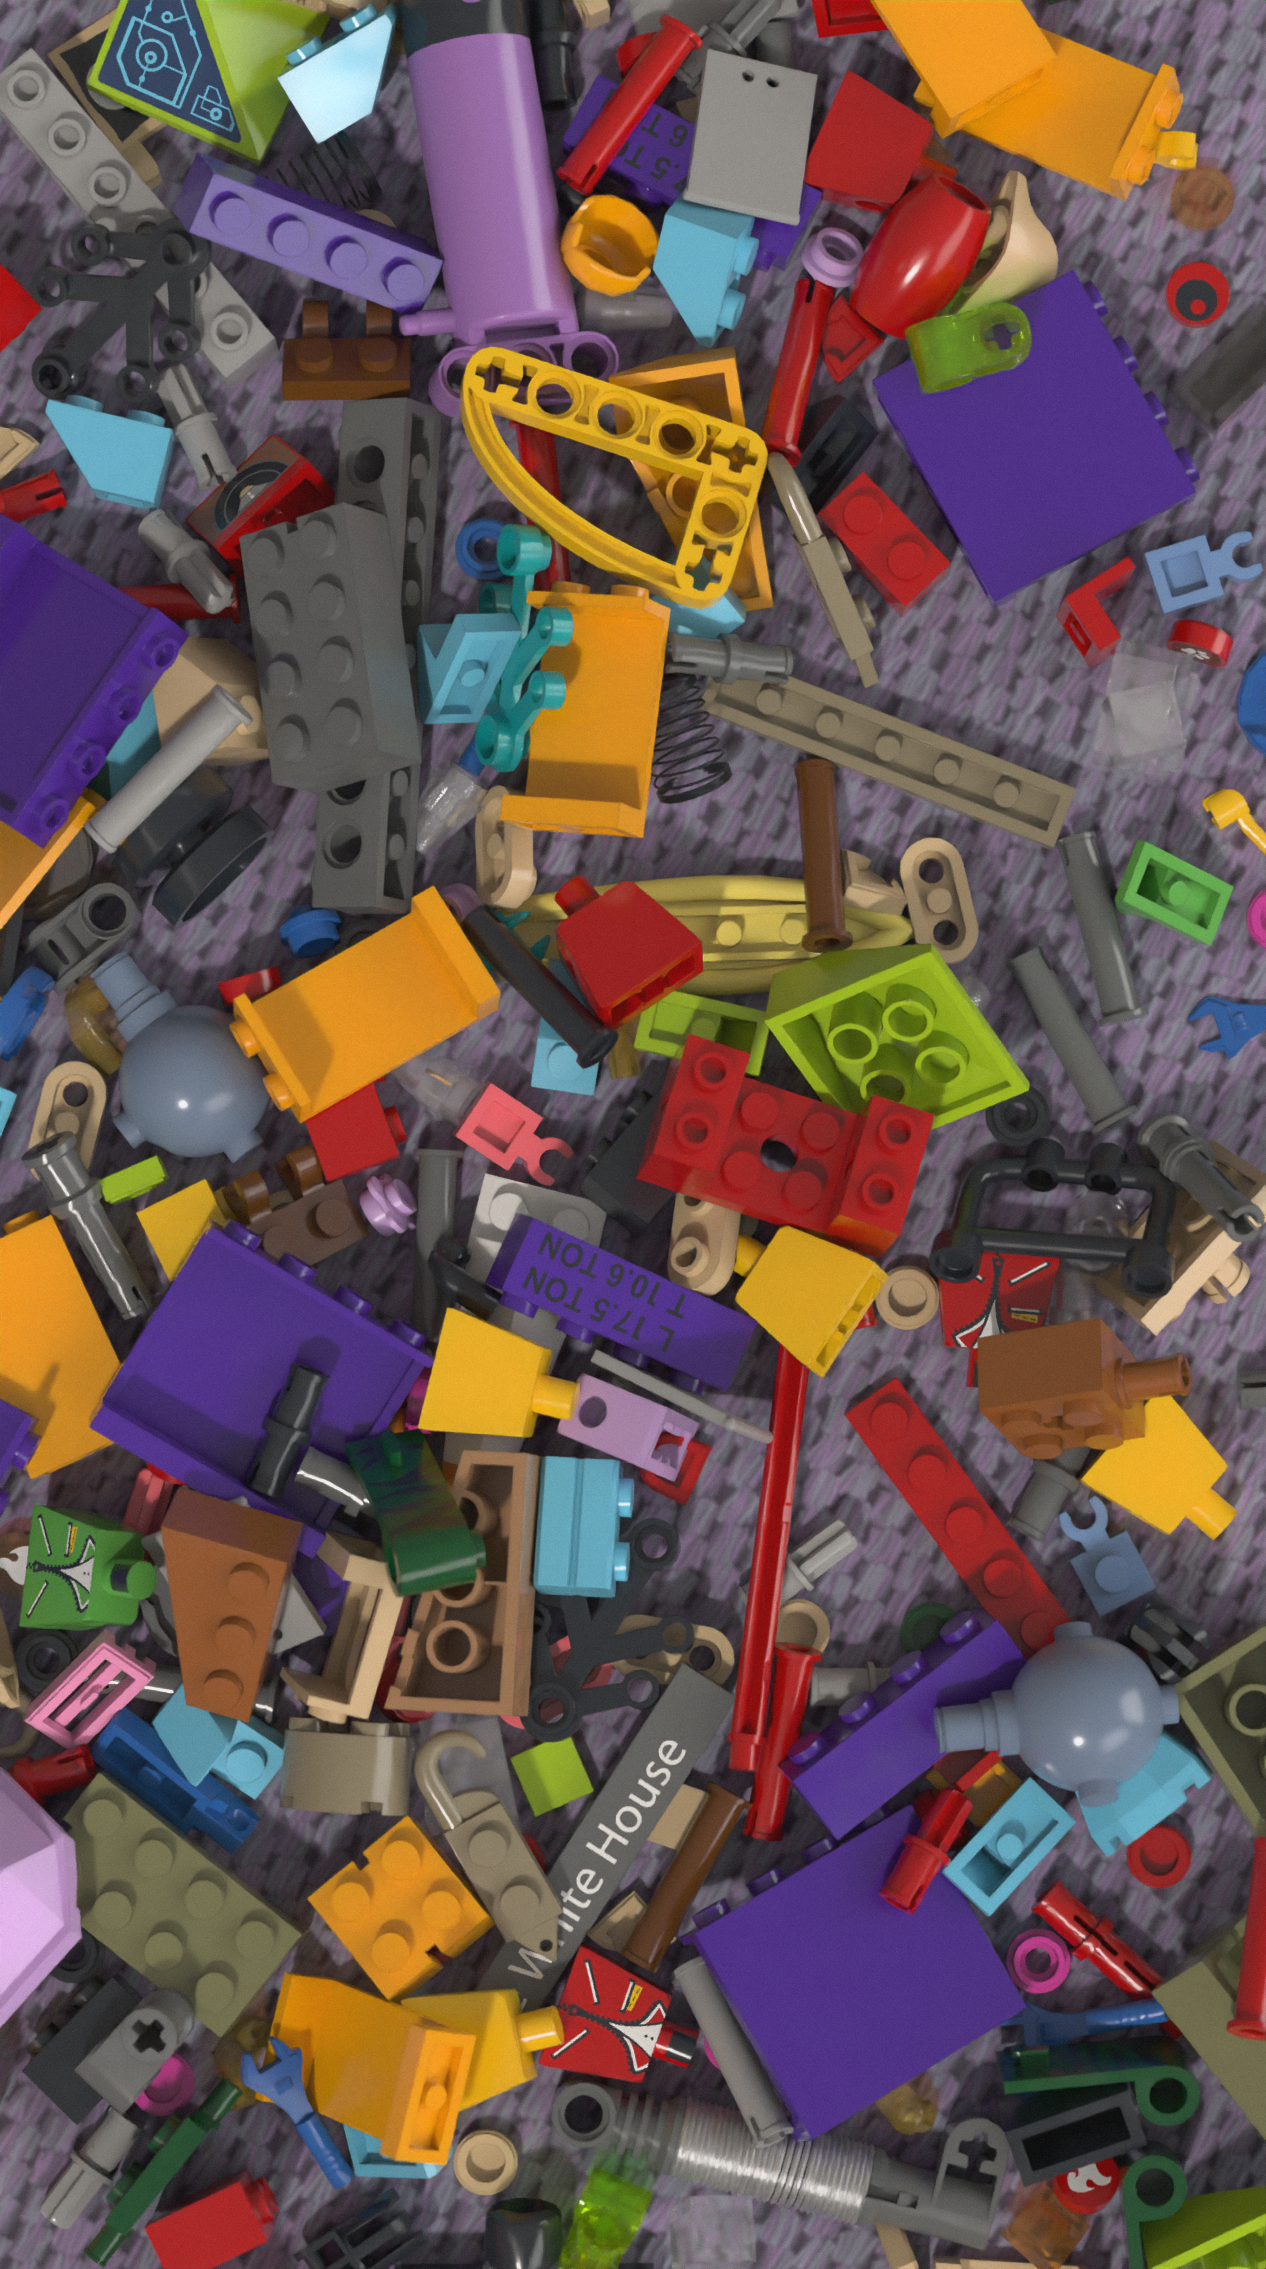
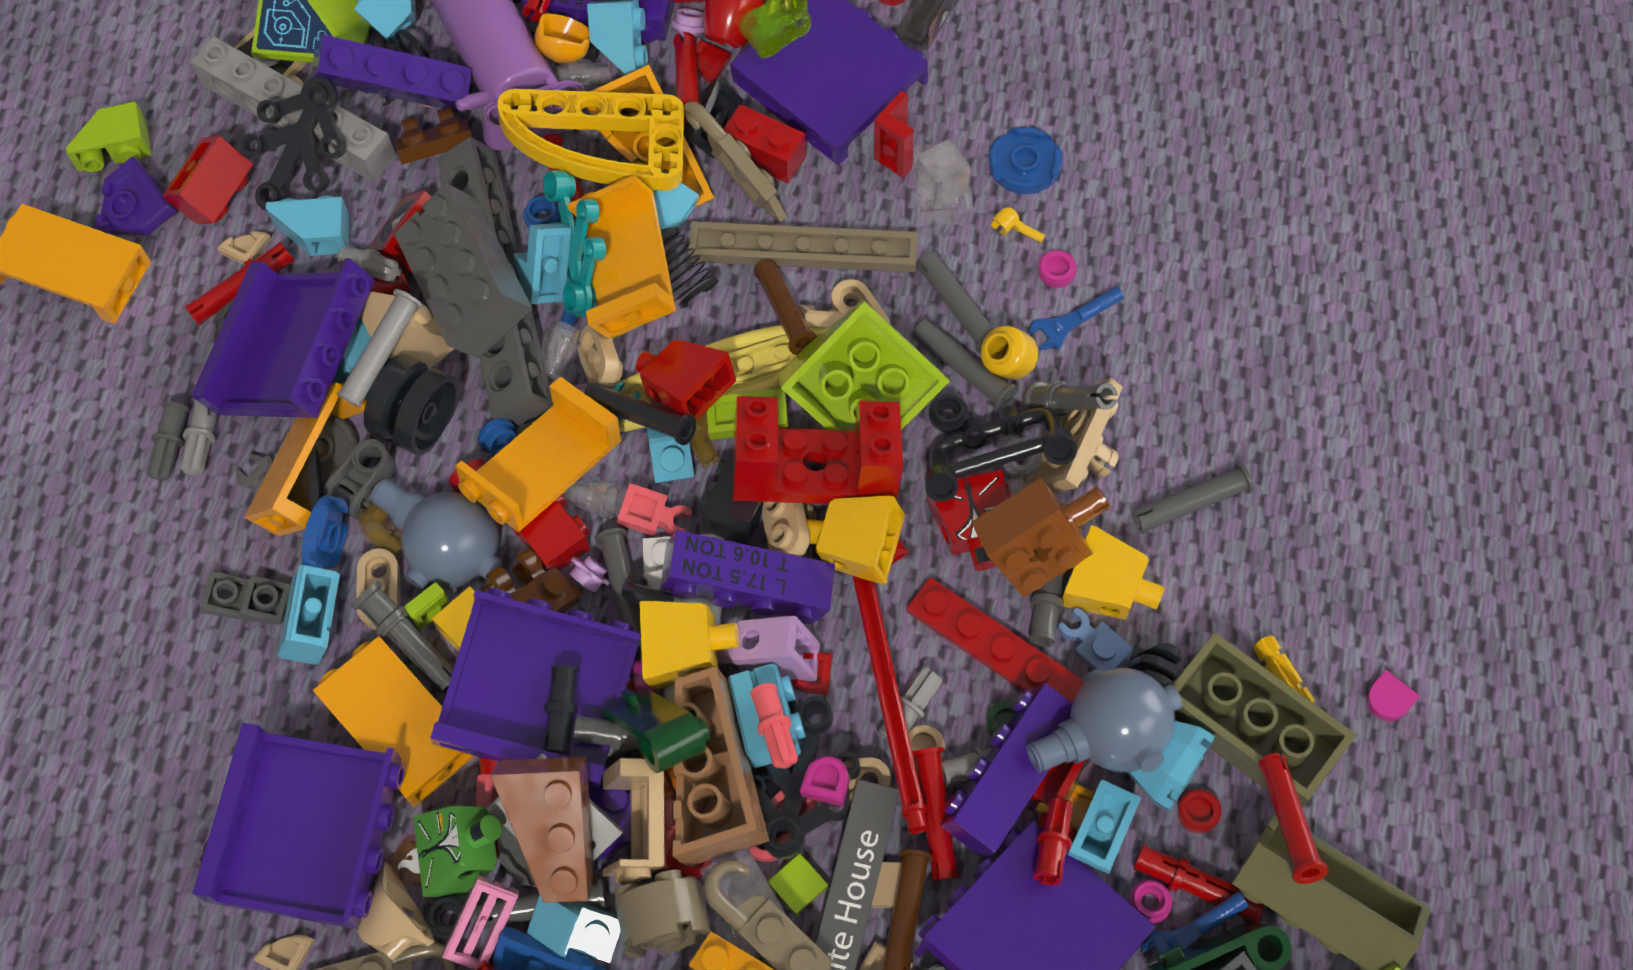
camera: 15 degrees left, 20 degrees down
(194, 427) = (357, 201): light grey axle -> none
(584, 1567) = (774, 725): none -> coral axle
(628, 1374) = (815, 615): light grey container -> none
(637, 1653) = (826, 781): none -> dark pink tile
(728, 659) = (695, 214): dark grey pin -> none
(907, 1298) = (920, 533): tan tile -> none
(1143, 1054) = (1009, 352): none -> yellow head
(1172, 893) = (992, 266): bright green slope -> none
(1191, 574) = (941, 113): medium blue plate -> none
(1201, 640) = (965, 139): red tile -> none

